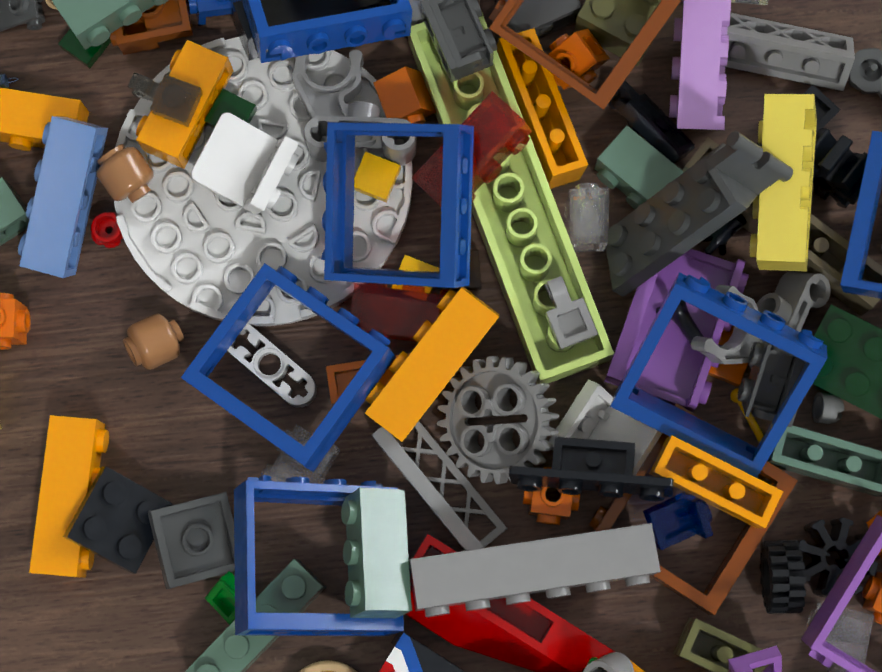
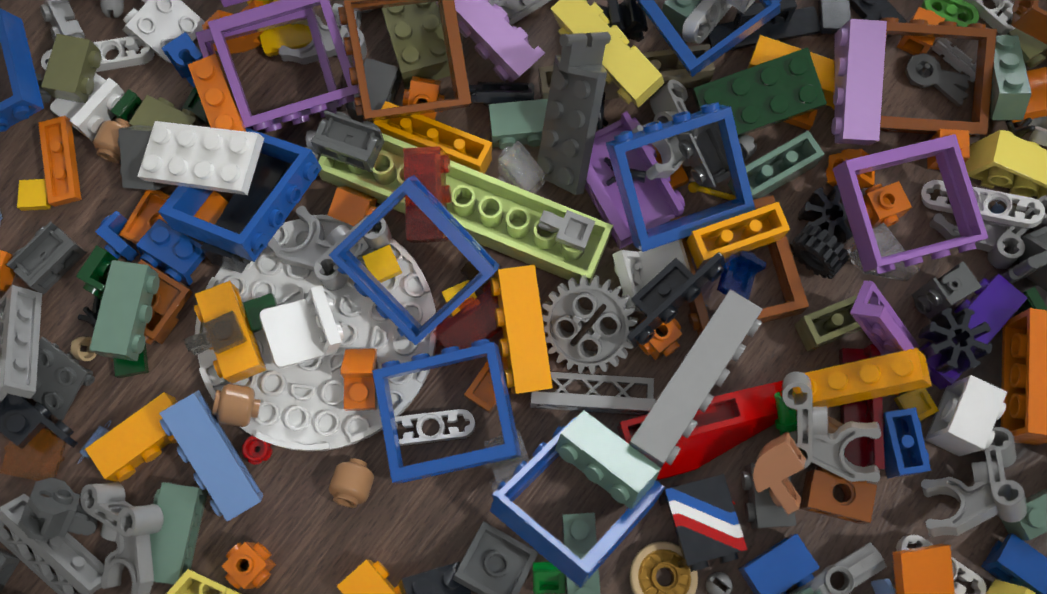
camera: 50 degrees left, 5 degrees down
(254, 248) = (359, 379): none -> orange slope

